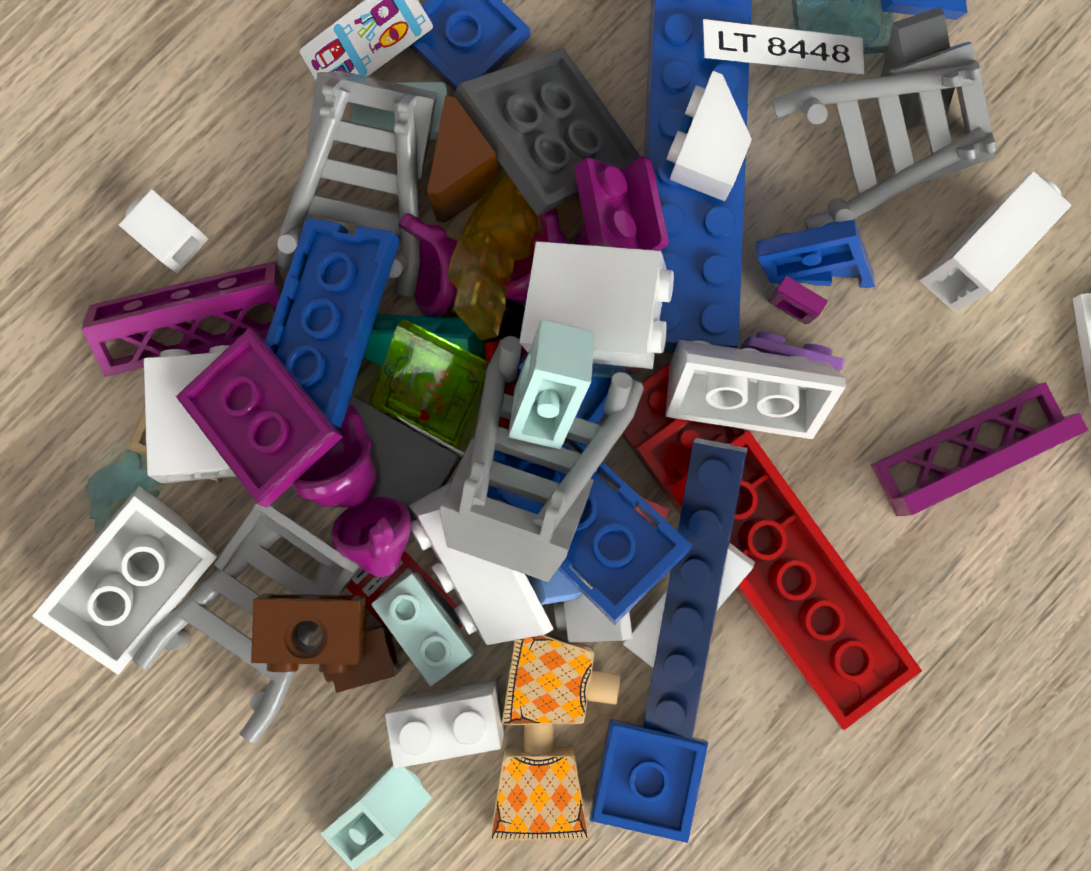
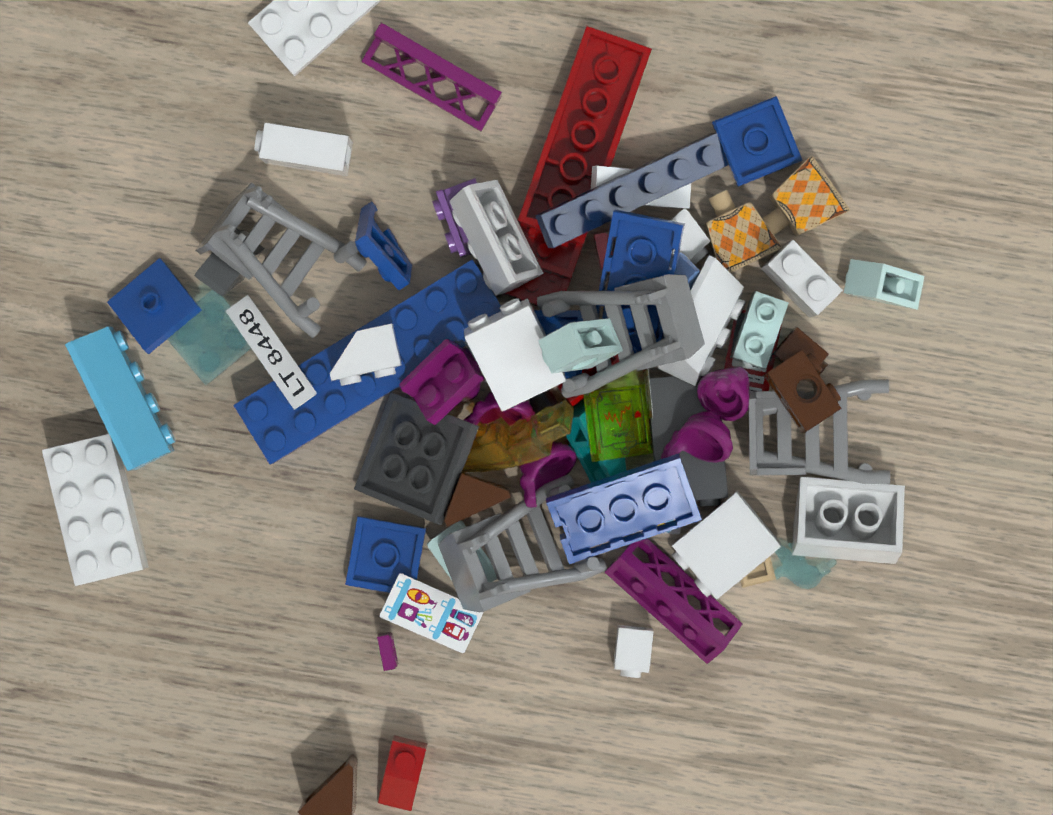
camera: 120 degrees left, 5 degrees up
(258, 418) = (704, 503): magenta tile -> none
(797, 300) = (415, 242): magenta tile -> none

